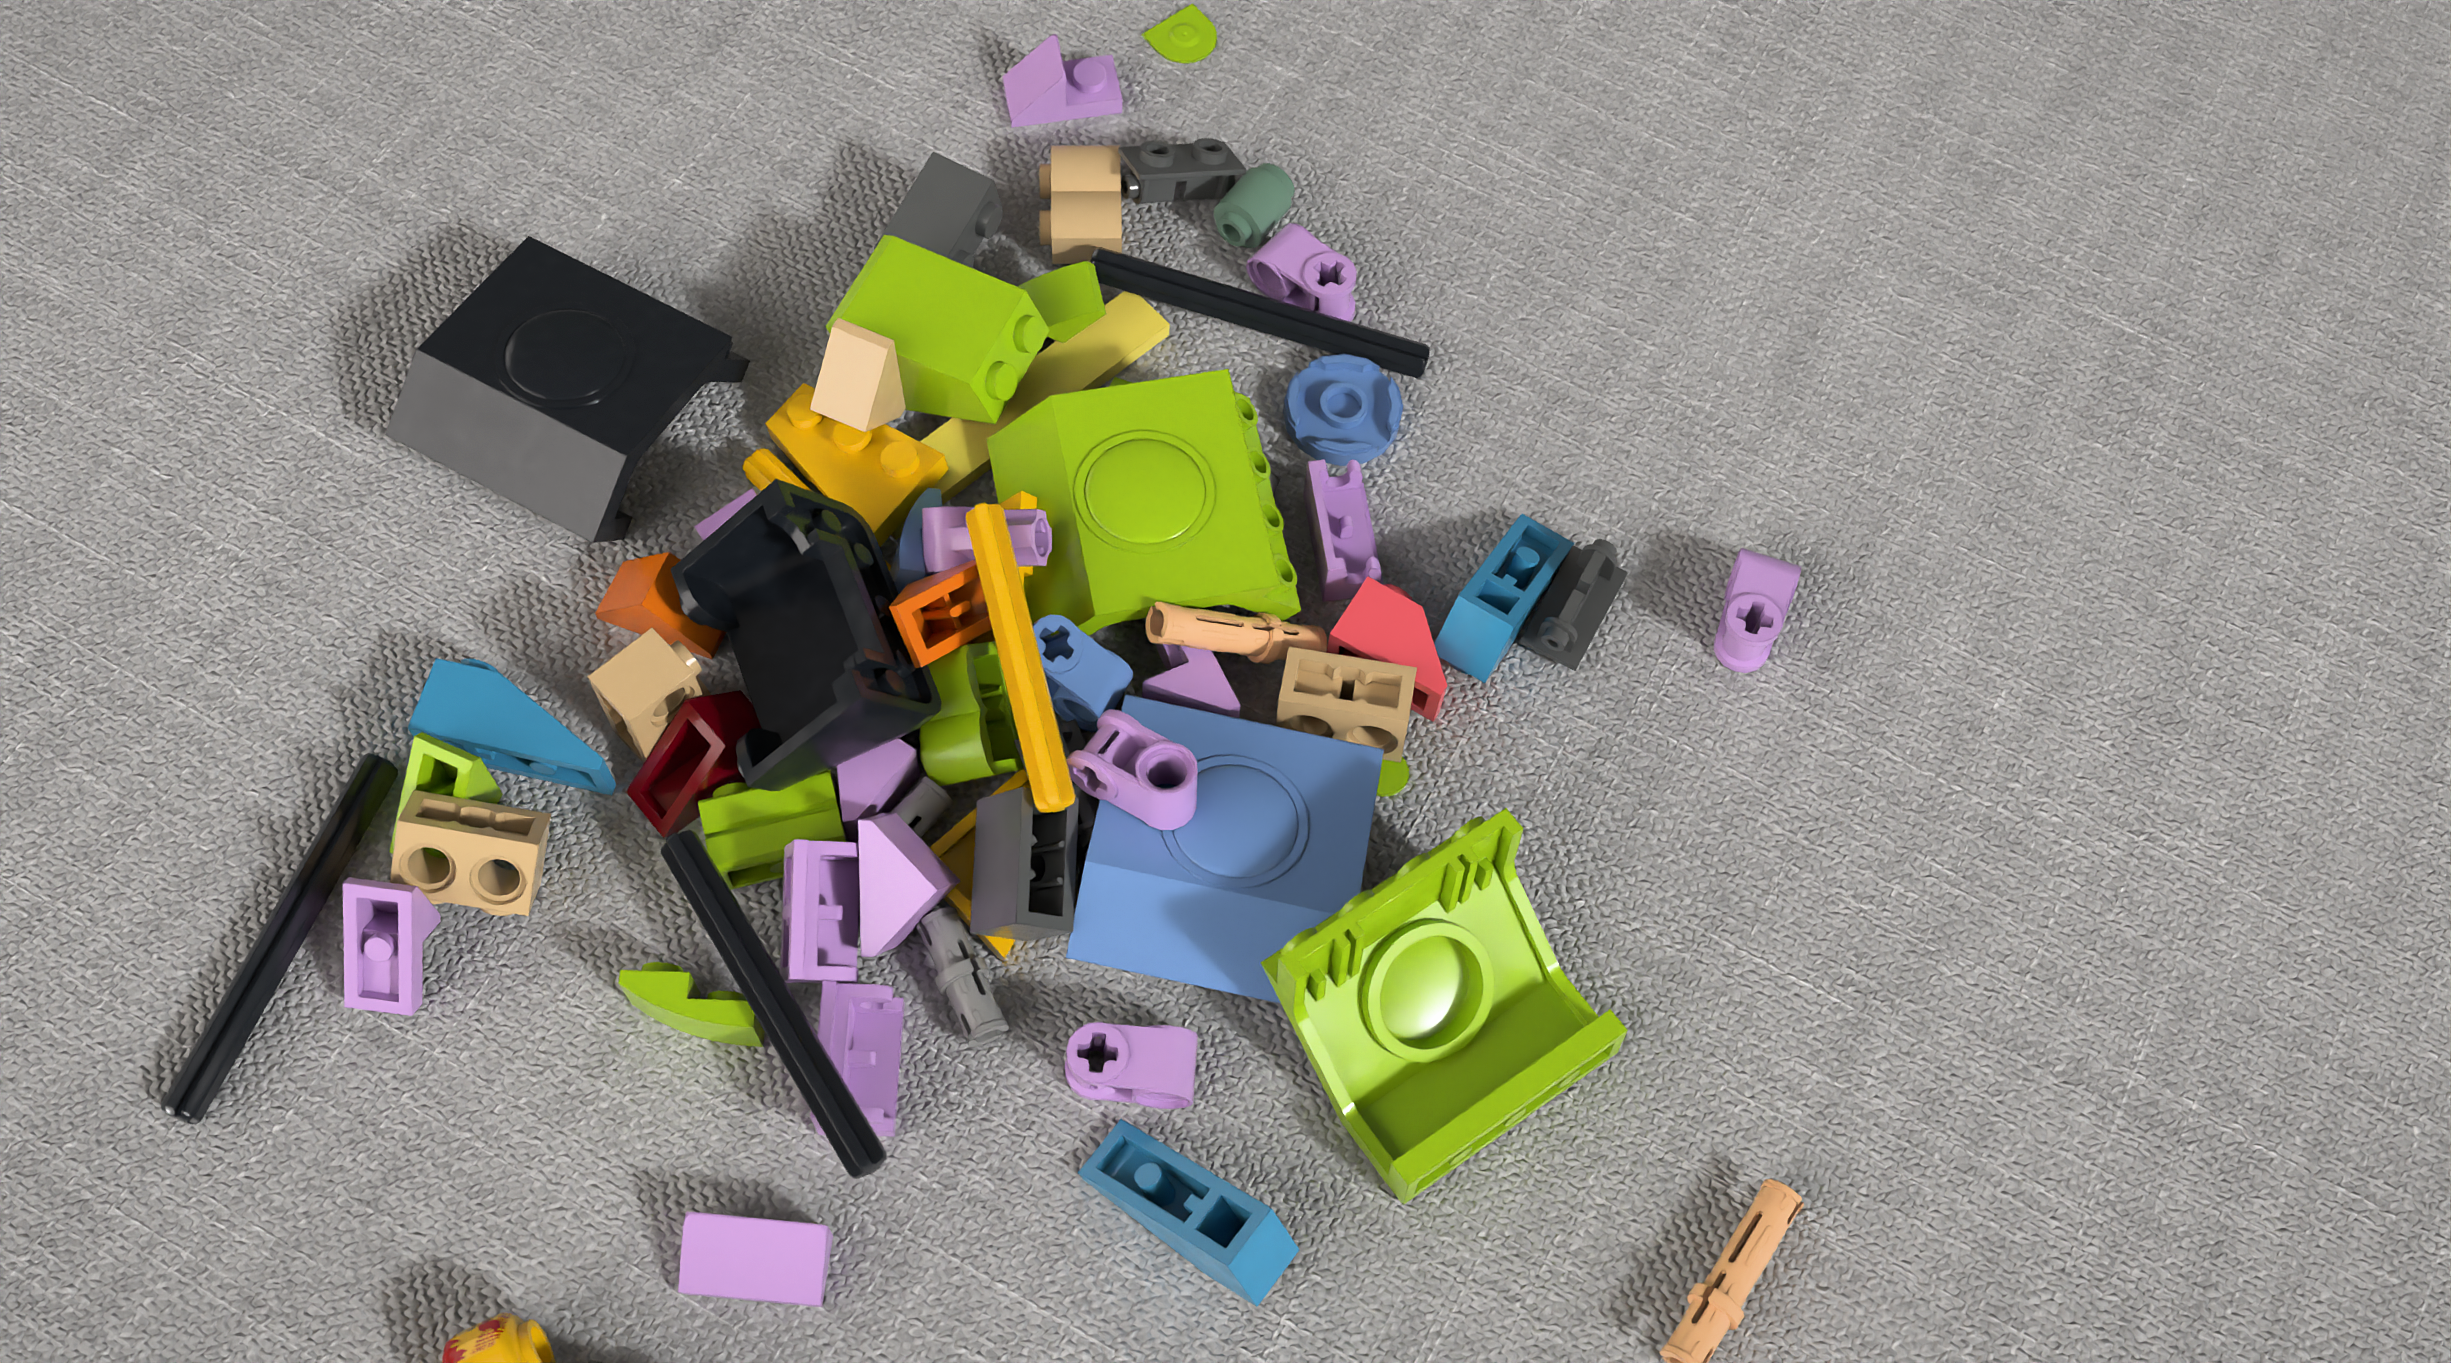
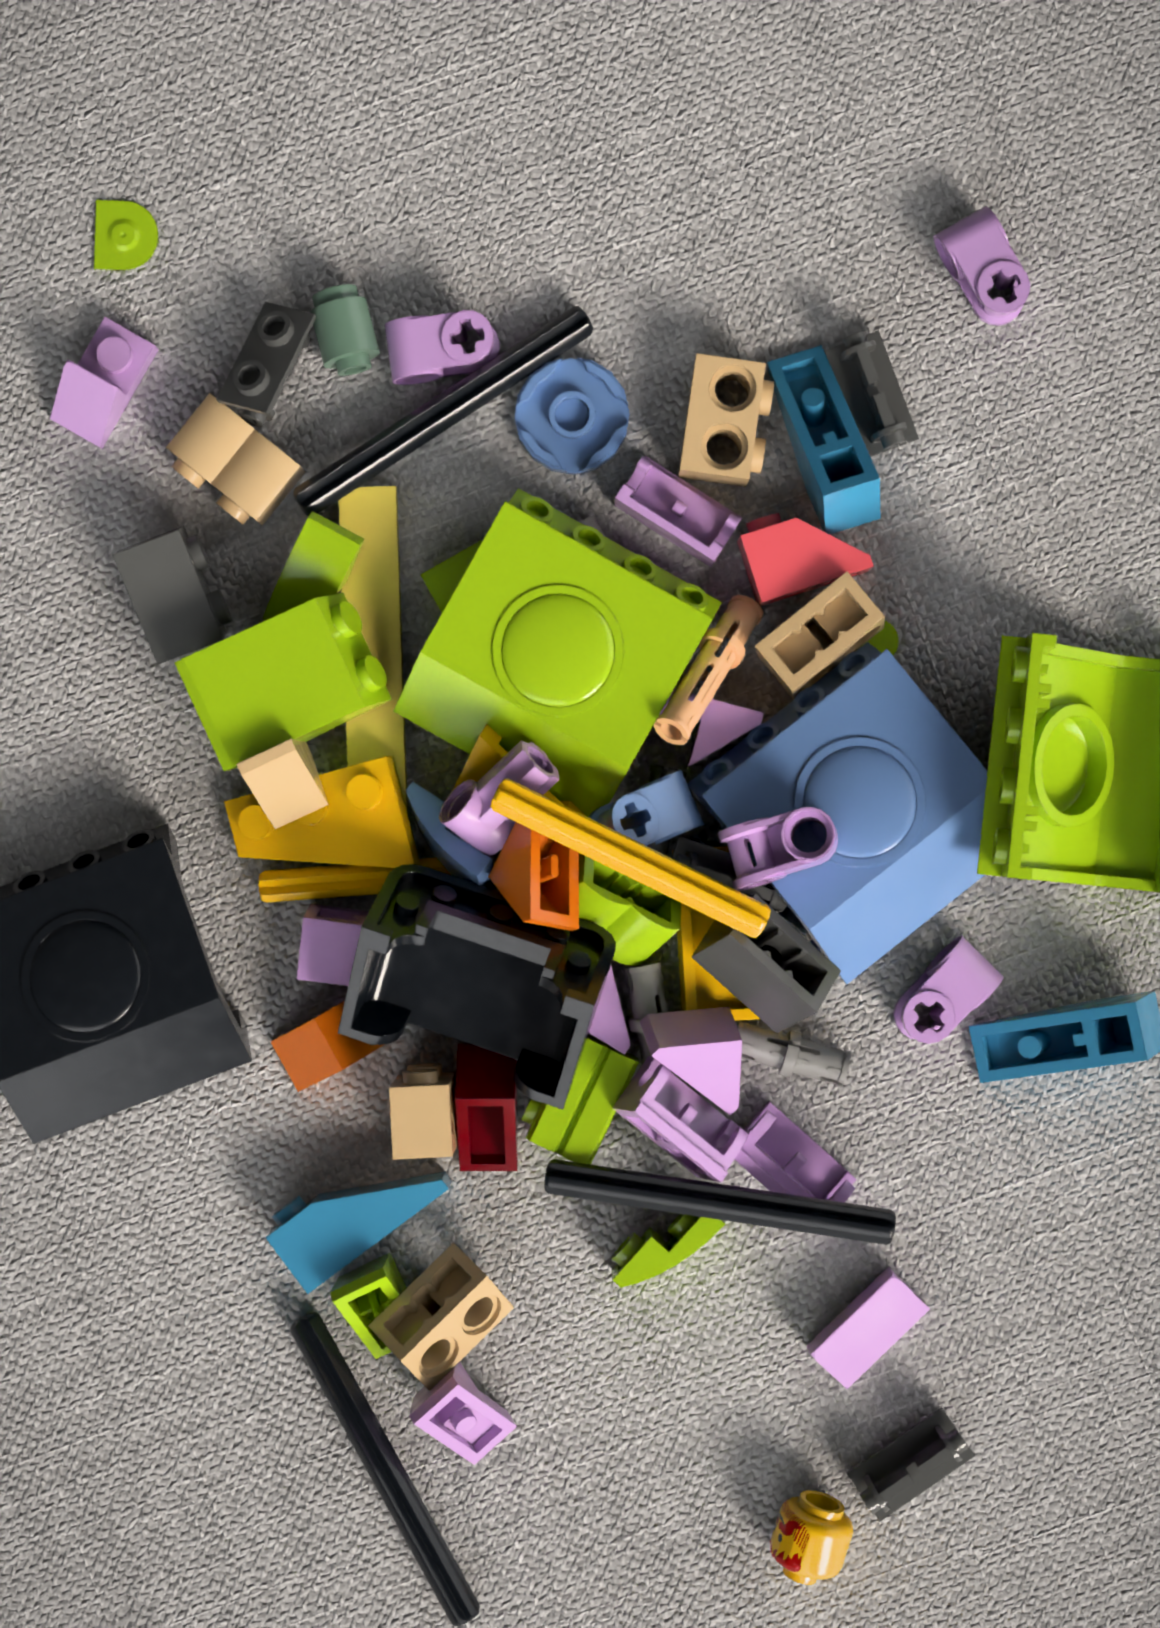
camera: 45 degrees left, 25 degrees up
(1436, 498) = (712, 419): none -> tan brick

